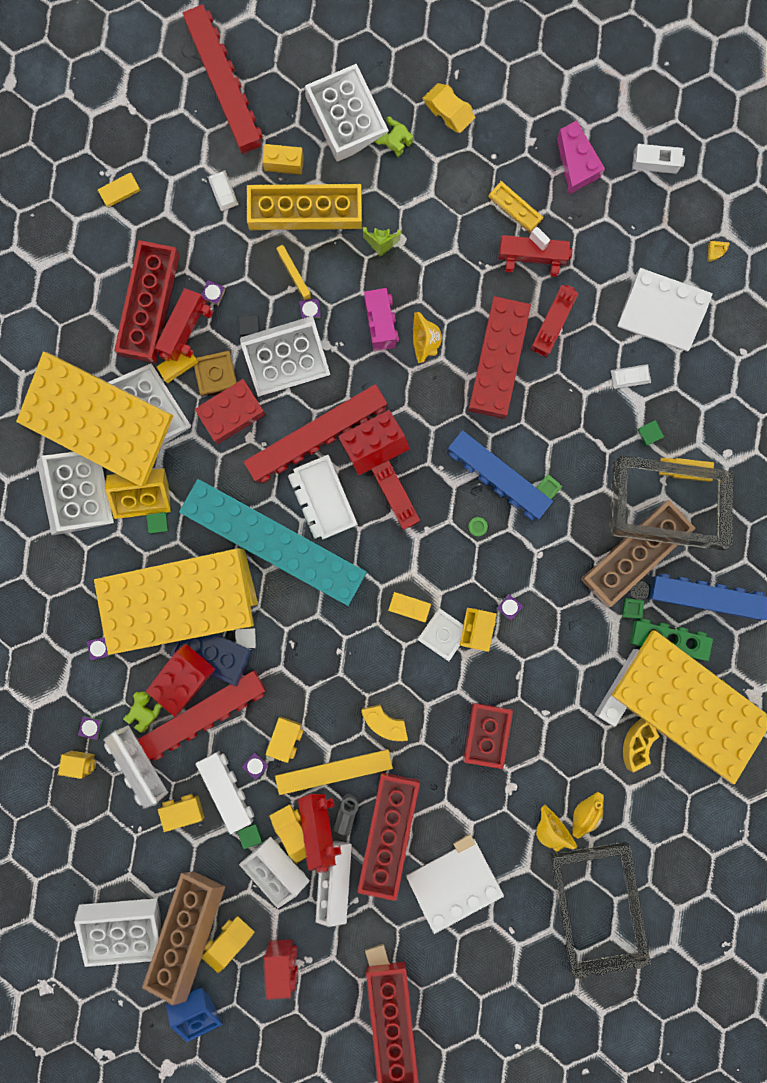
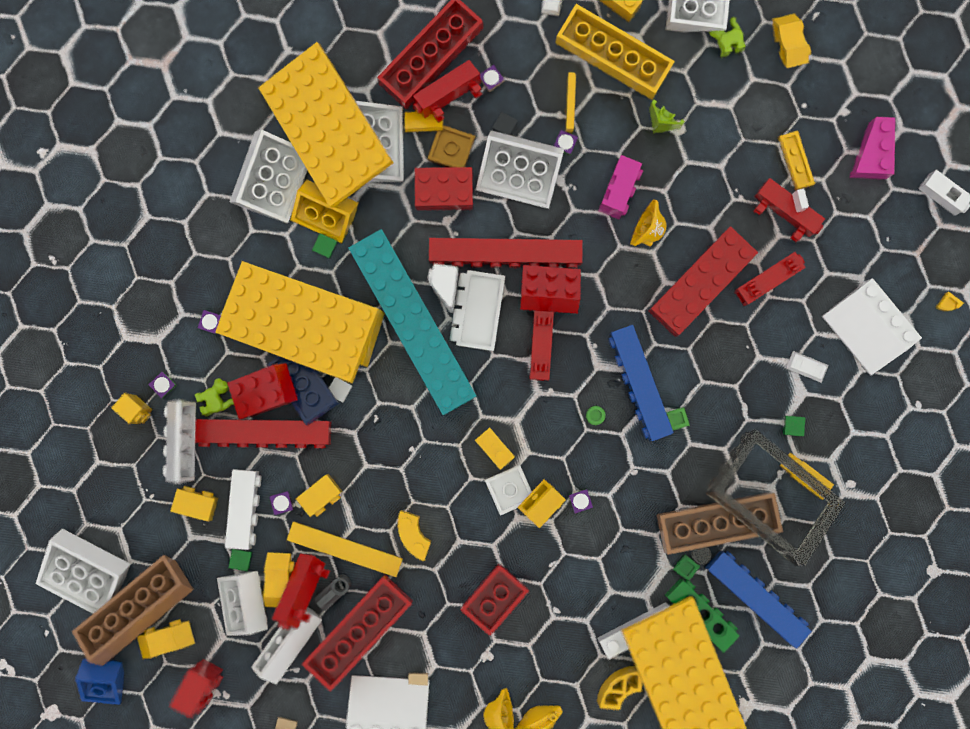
camera: 30 degrees right, 0 degrees up
(280, 492) = (444, 284): none -> white slope

